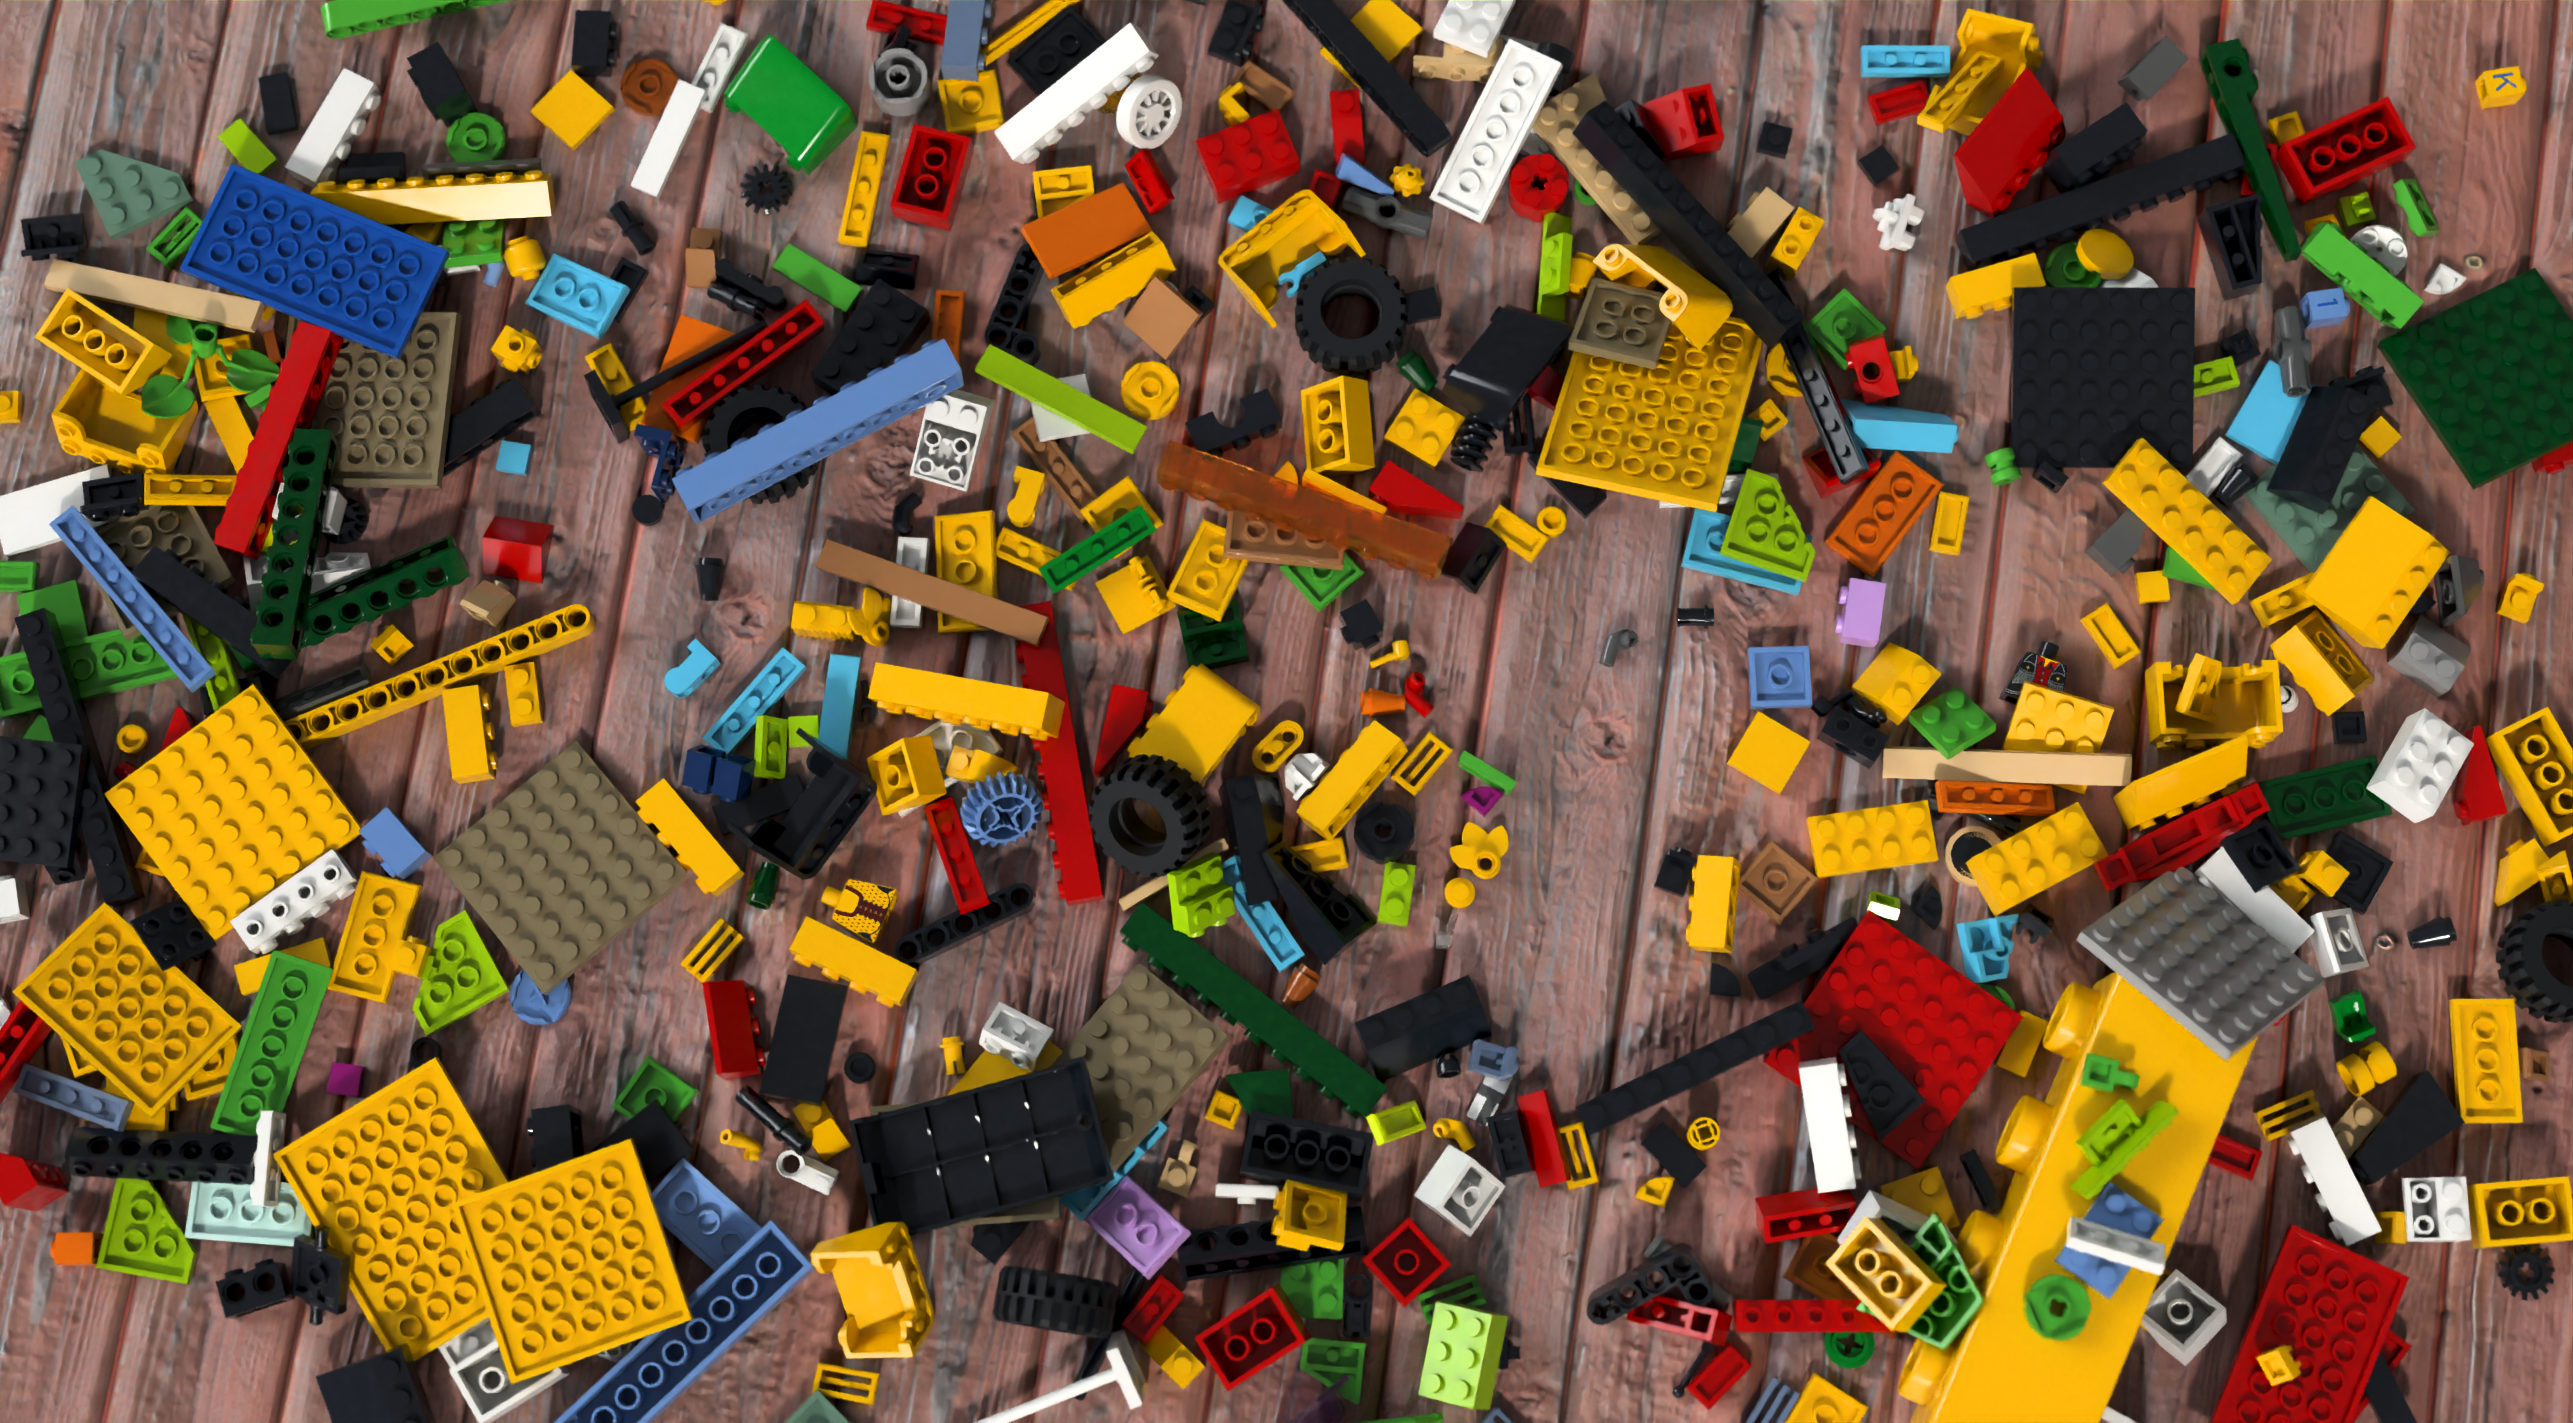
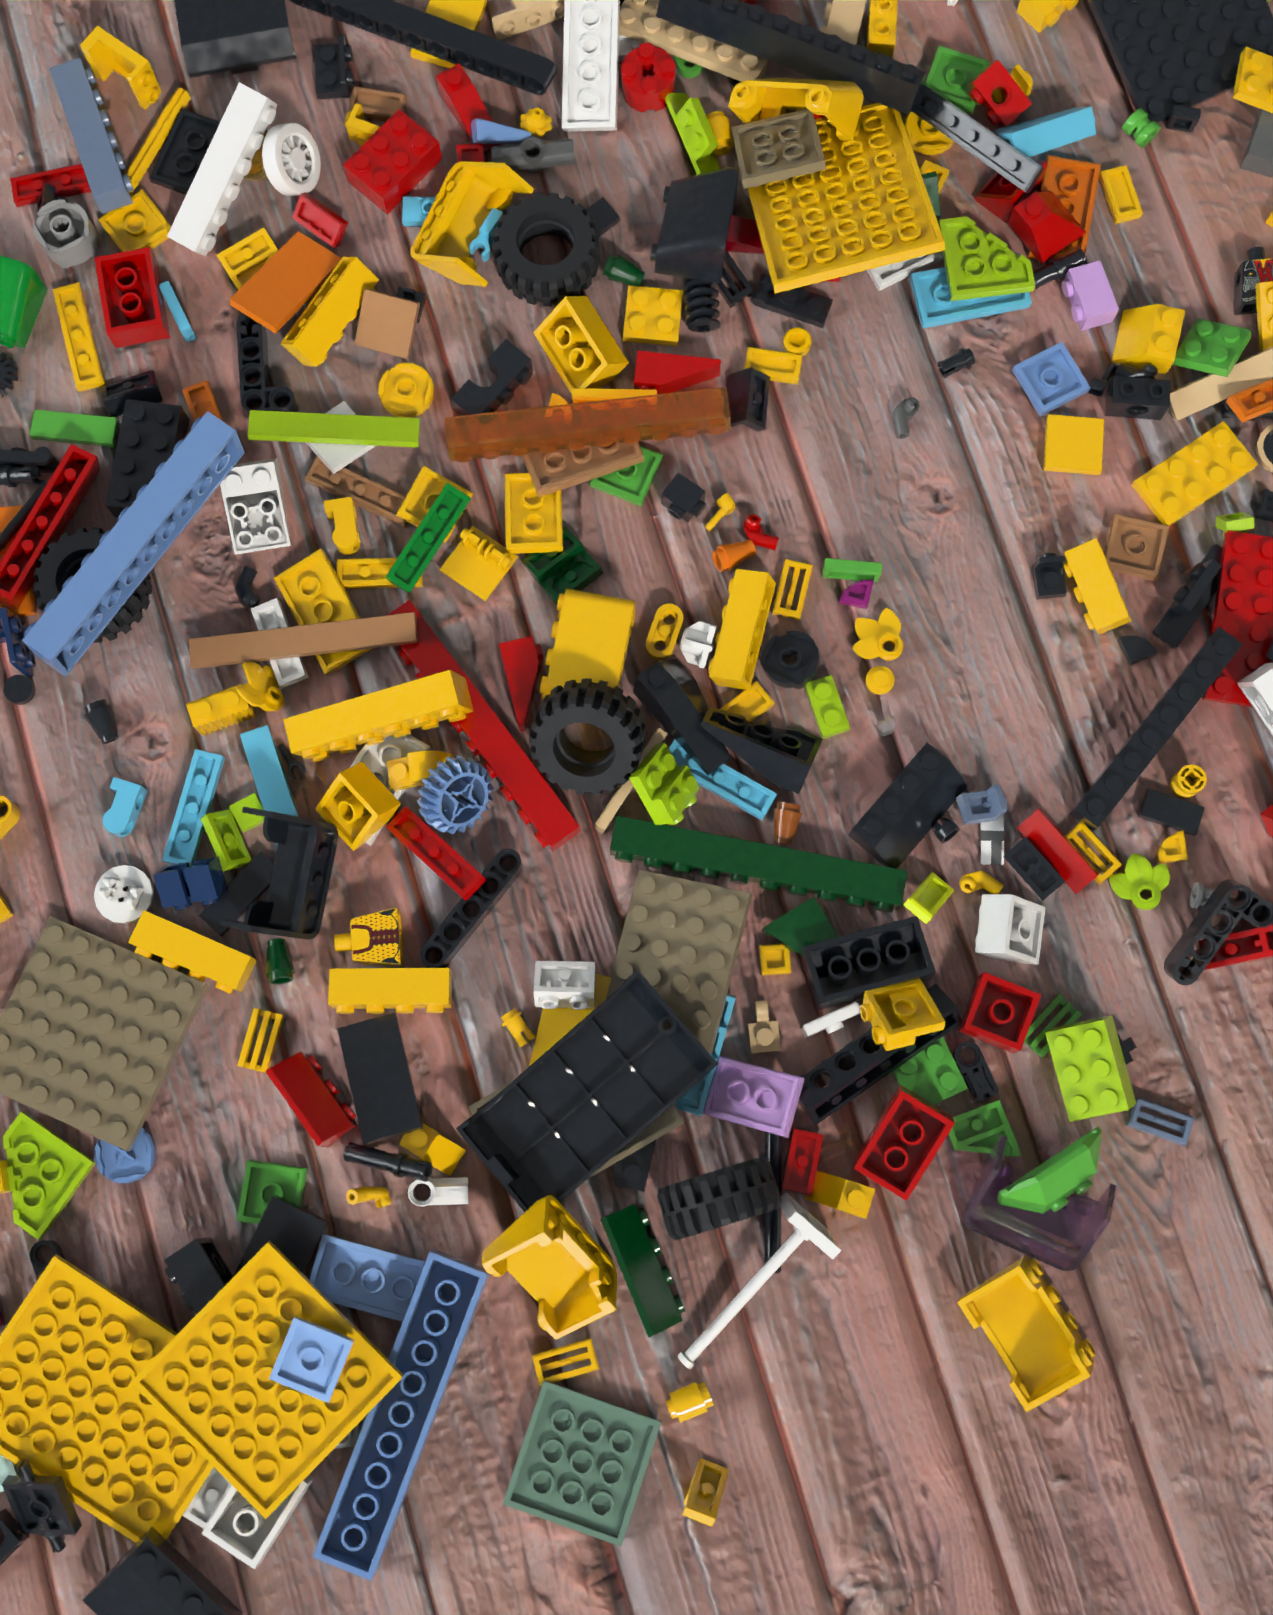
camera: 25 degrees left, 0 degrees up
(619, 1262) = (311, 1359): none -> light blue plate
(643, 743) = (136, 899): none -> white plate
(860, 1068) = (440, 1078): black tile -> none
(955, 1332) = (642, 1270): none -> dark green slope
(969, 194) = (177, 311): none -> medium azure tile
(1608, 1202) = (1138, 877): none -> lime plate
(1843, 570) = (1059, 268): none -> black pin
(1853, 521) = (1044, 225): none -> red slope

